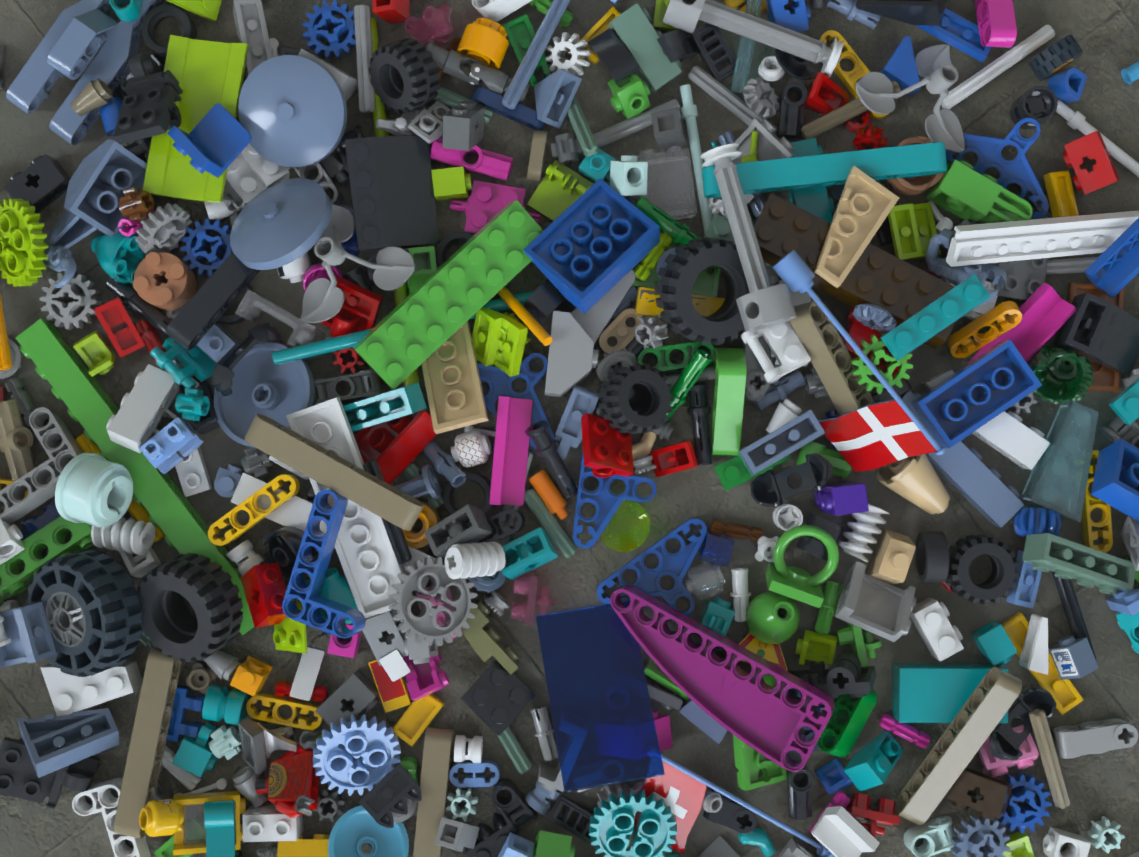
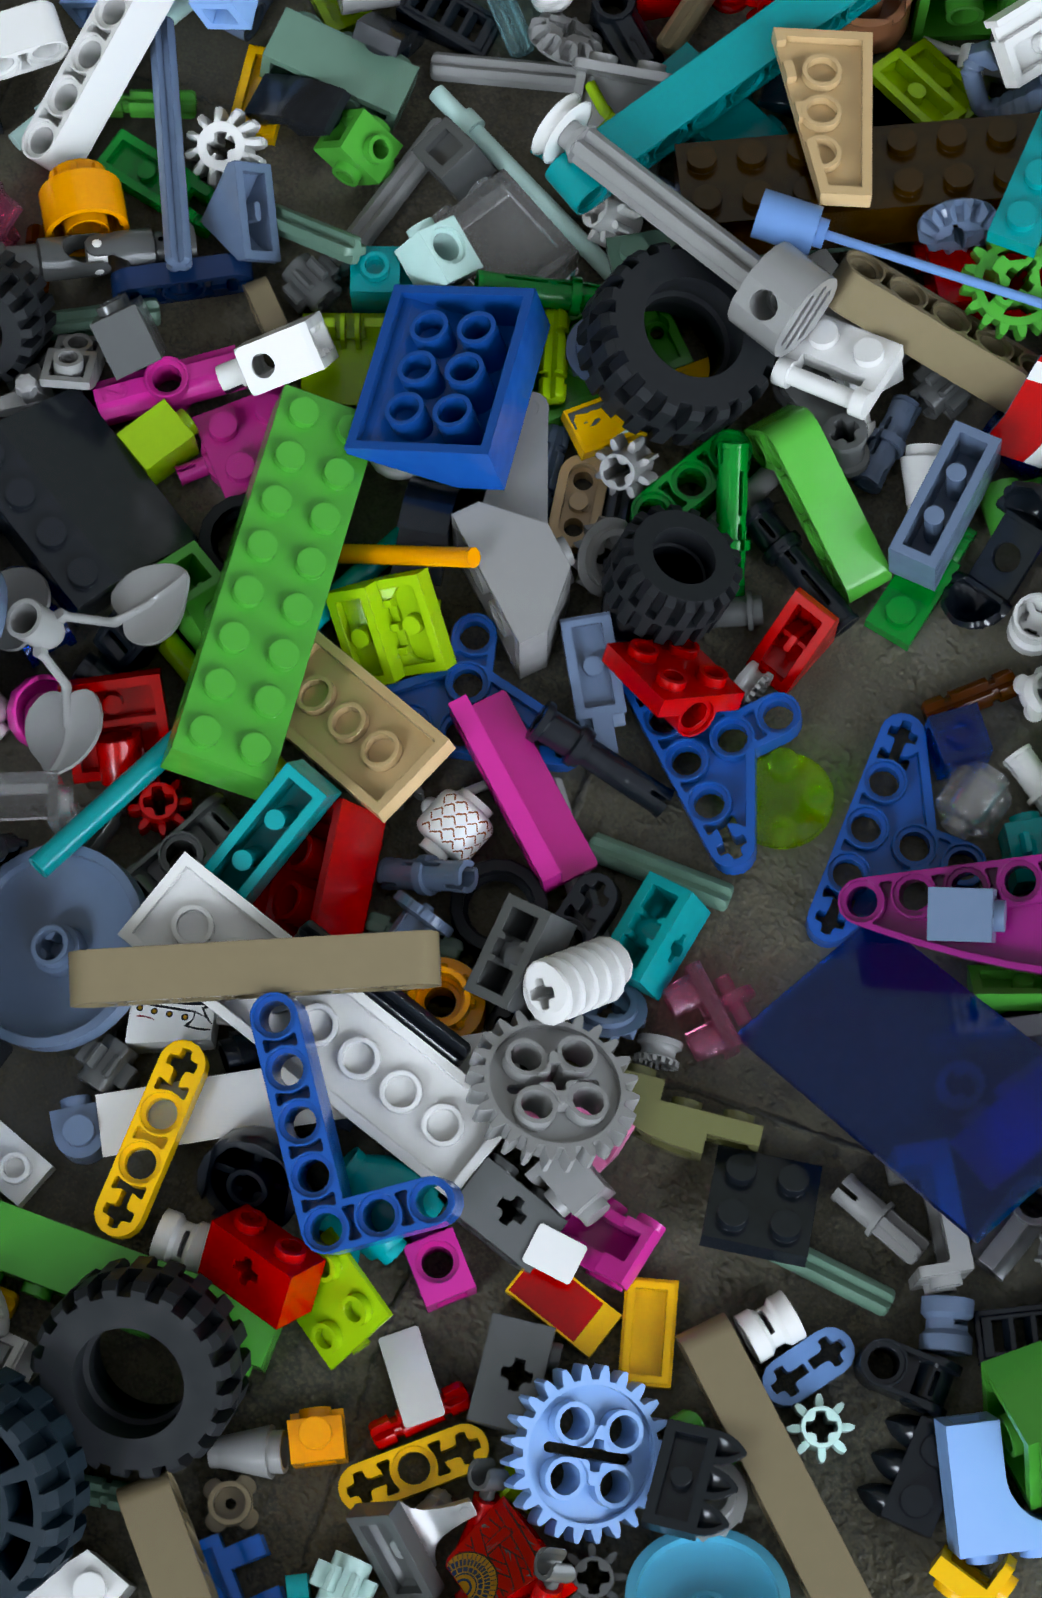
camera: 35 degrees left, 15 degrees down
(223, 704) = (304, 1515): teal wheel -> none
(456, 835) = (849, 1487): light grey brick -> none
(527, 181) = (295, 348): none -> white torso
(549, 494) = (628, 824): orange cylinder -> none
(643, 448) = (732, 650): tan arm -> none
(658, 642) = (965, 914): none -> sand blue brick

